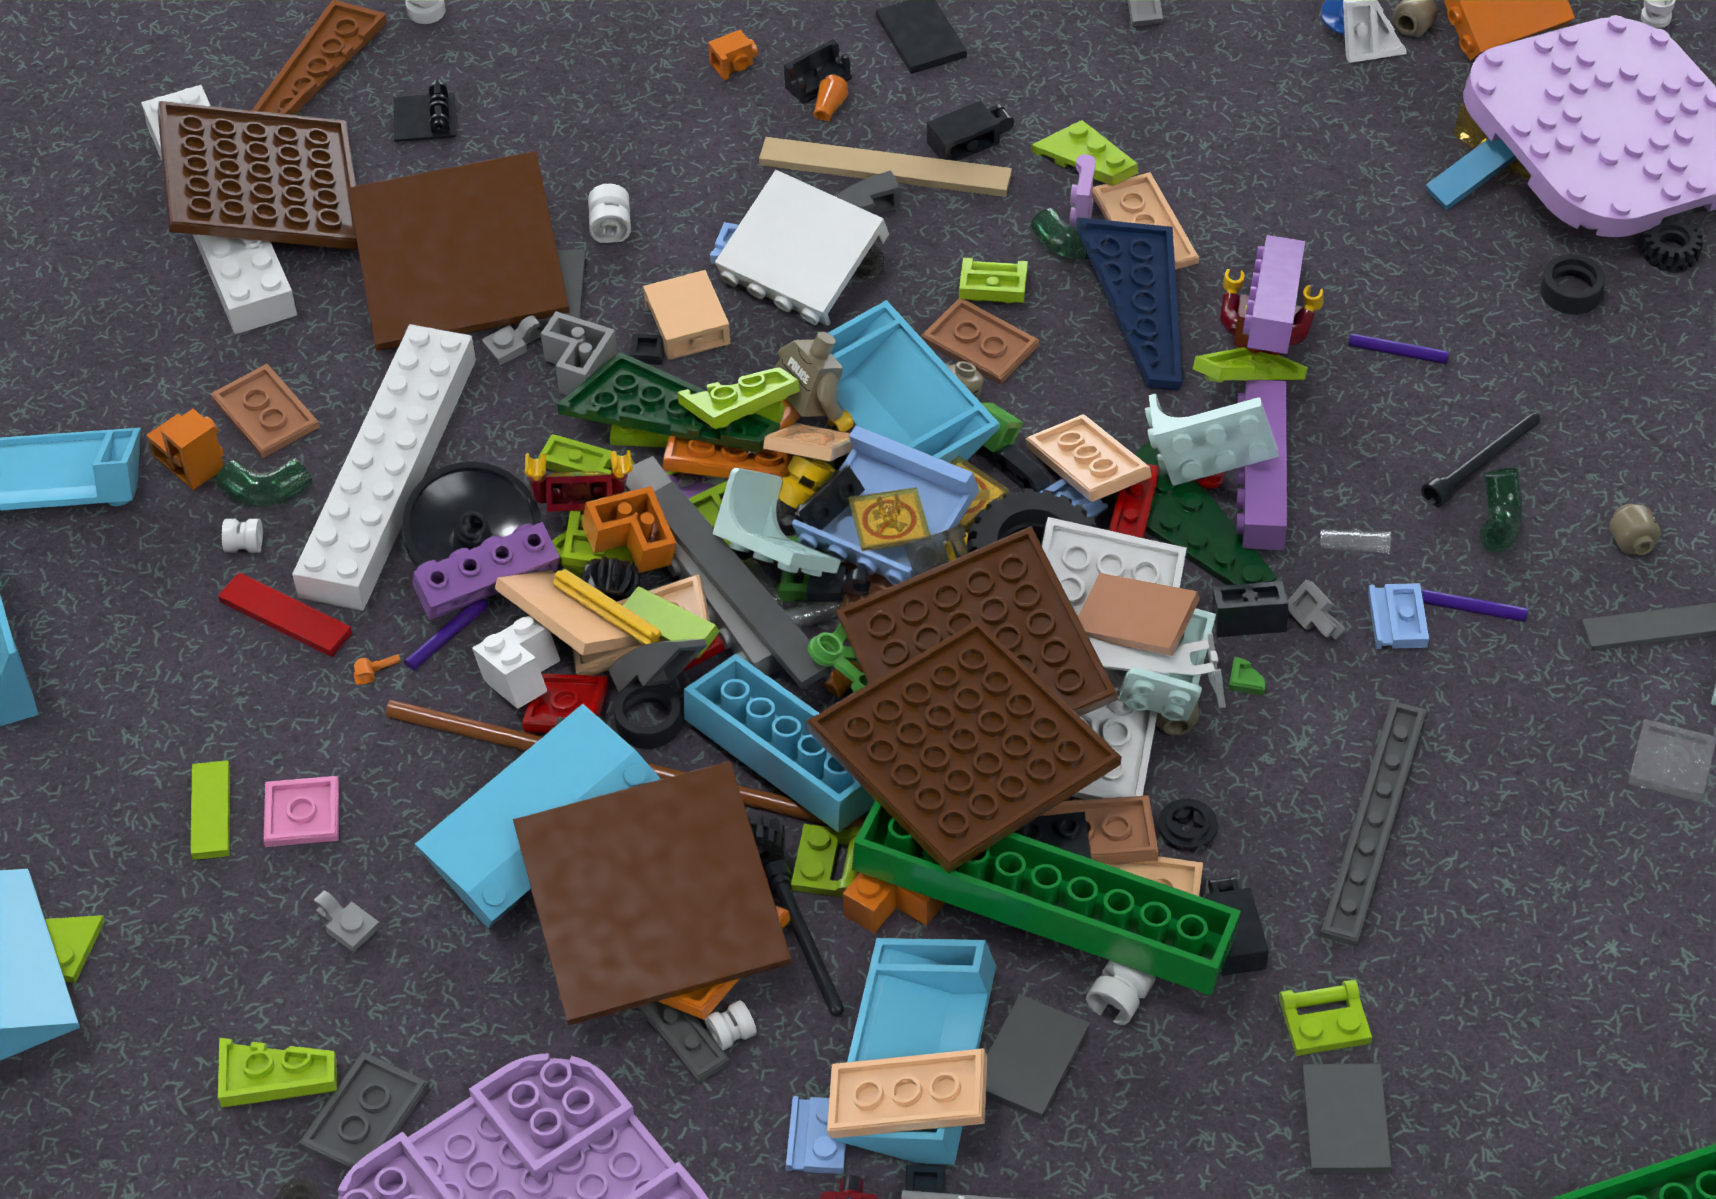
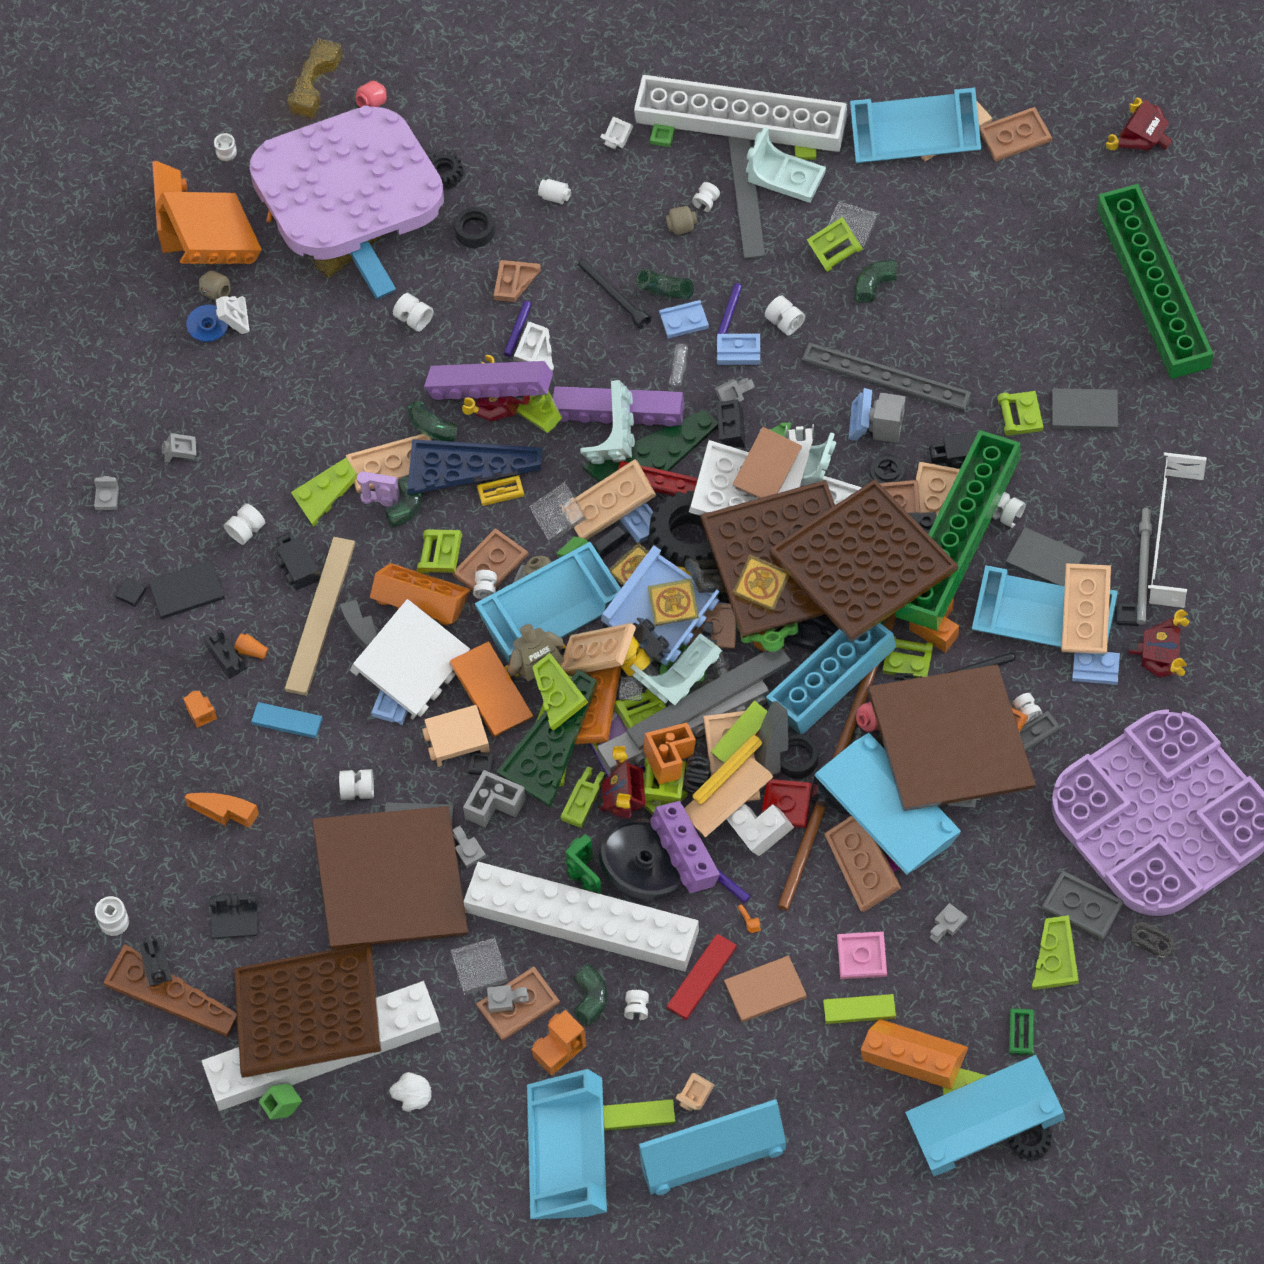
camera: 85 degrees left, 10 degrees up
(74, 551) = (638, 1115): none -> lime tile
(90, 608) = (695, 1092): none -> light nougat bracket
(118, 872) = (913, 1053): none -> orange slope
(121, 1033) = (1021, 1050): none -> green tile
(140, 171) = (280, 1101): none -> bright green brick
(140, 302) = (412, 1091): none -> white hair
(257, 691) = (765, 989): none -> nougat tile
(266, 385) = (502, 997): none -> light grey plate
(323, 362) = (479, 966): none -> clear plate
(338, 38) = (155, 961): none -> black hinge
(430, 805) = (862, 863): none -> nougat tile
(458, 443) = (577, 857): none -> green bracket
(577, 90) = (223, 807): none -> orange slope
(718, 145) = (287, 720): none -> dark azure tile
(755, 338) = (491, 689): none -> orange tile
(921, 618) = (761, 582): none -> clear yellow piece
(923, 260) = (432, 595): none -> orange slope
(924, 321) = (485, 583): none -> white wheel
(1021, 72) = (245, 523): none -> white wheel
(1066, 403) = (557, 512): none -> clear plate
(1113, 363) = (503, 497): none -> yellow tile
(1204, 247) = (431, 424): none -> clear green cylinder
(1285, 816) = (887, 417): none -> light grey brick
(1295, 775) = (860, 415): none -> light blue plate
(1363, 367) = (534, 345): none -> white wing
(1402, 221) = (413, 312): none -> white wheel
(1448, 547) = (683, 319): none -> light blue plate
(1469, 669) = (782, 313): none -> white wheel
(1484, 335) = (514, 279): none -> nougat wing
(1570, 788) = (871, 276): none -> clear green cylinder
(1630, 721) = (829, 239): none -> lime plate
(1660, 371) = (554, 191): none -> white brick
(1689, 560) = (706, 196): none -> white wheel

